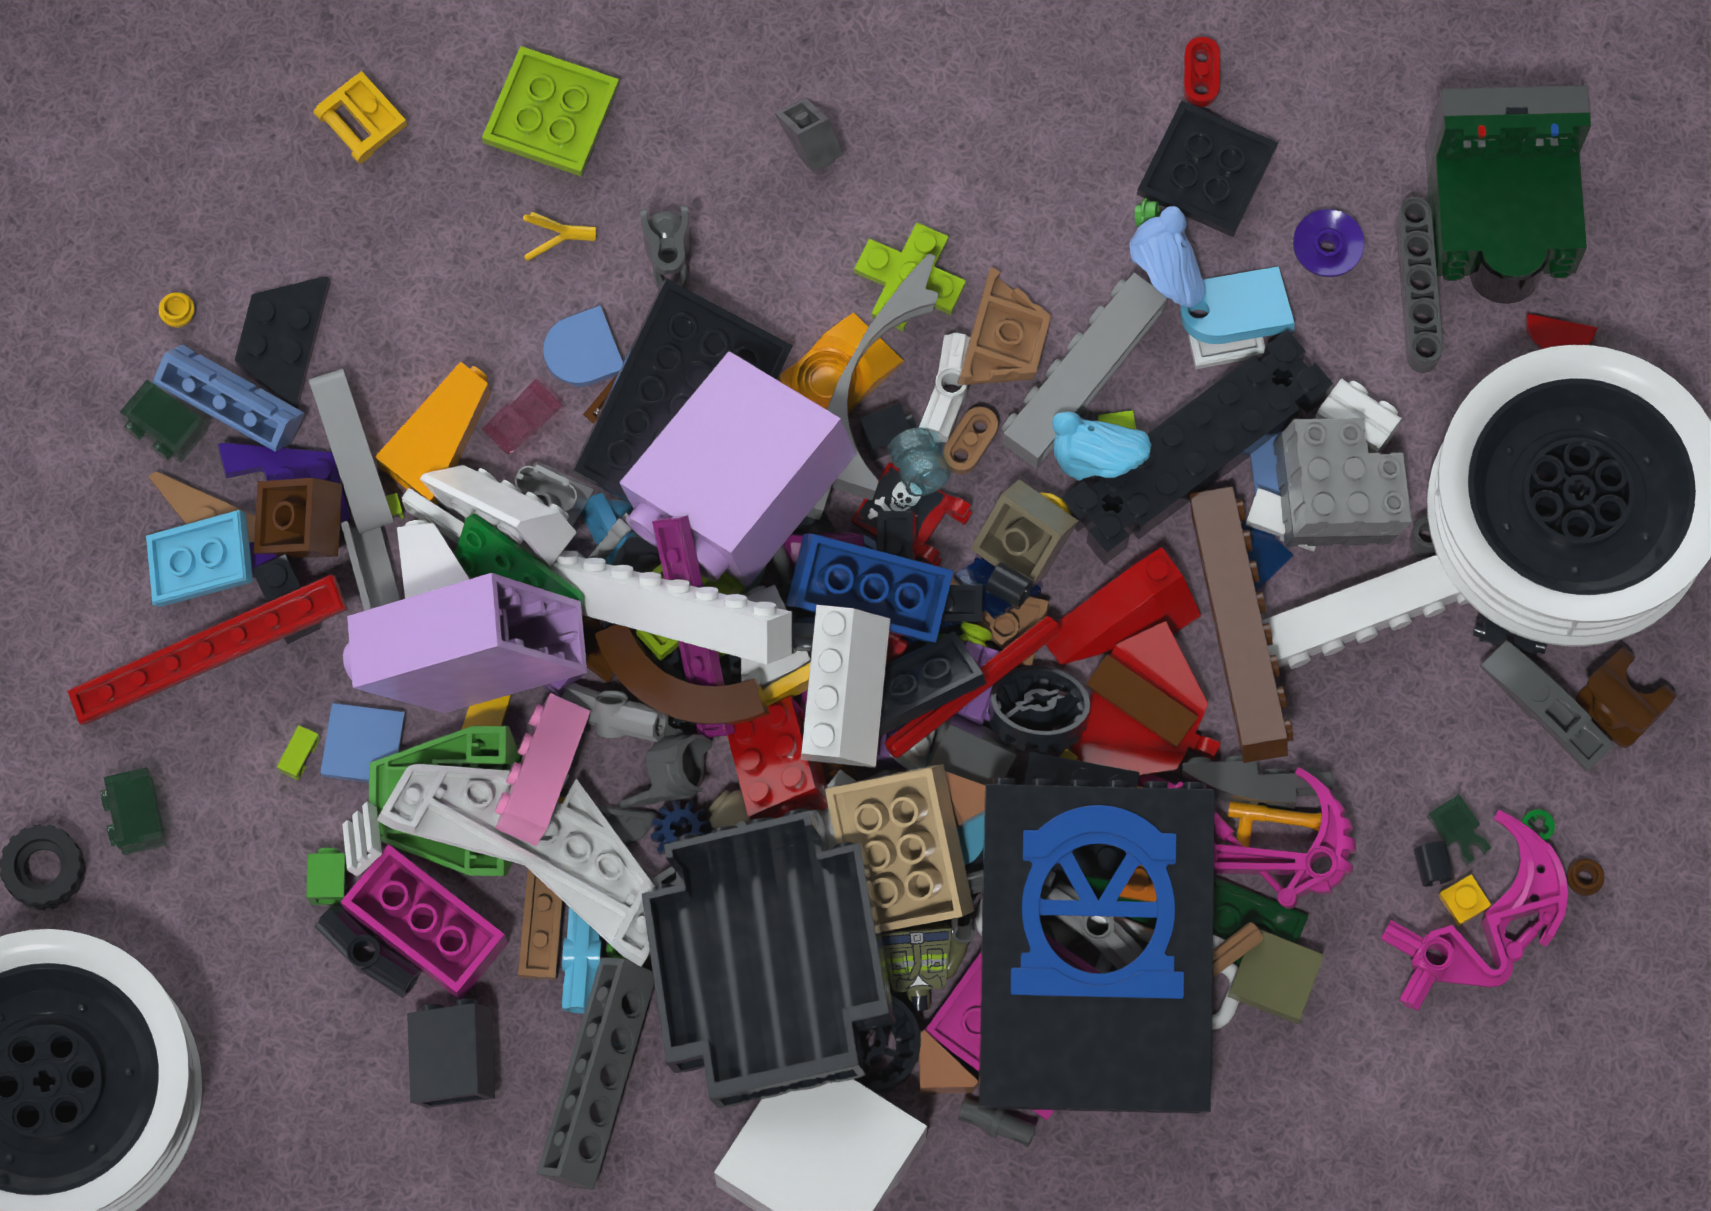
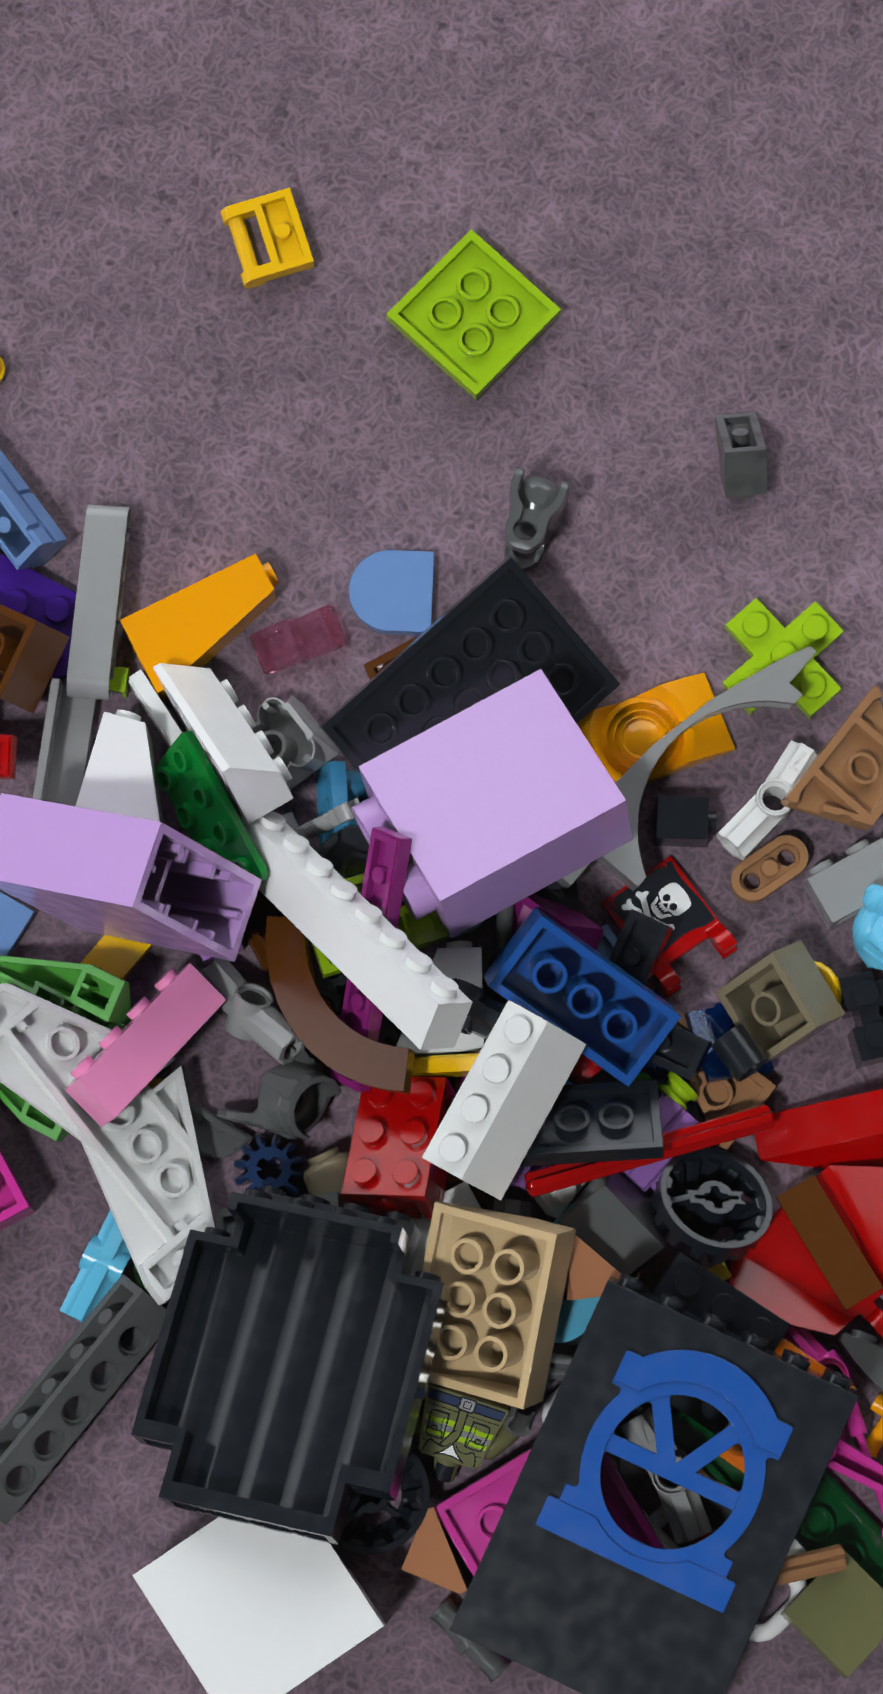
camera: 25 degrees right, 5 degrees up
(282, 336) = (83, 443): black wing -> none
(540, 931) = (71, 1218): medium nougat plate -> none
(566, 232) = (432, 454): yellow plant -> none
(919, 462) = (702, 874): clear light blue wheel -> none

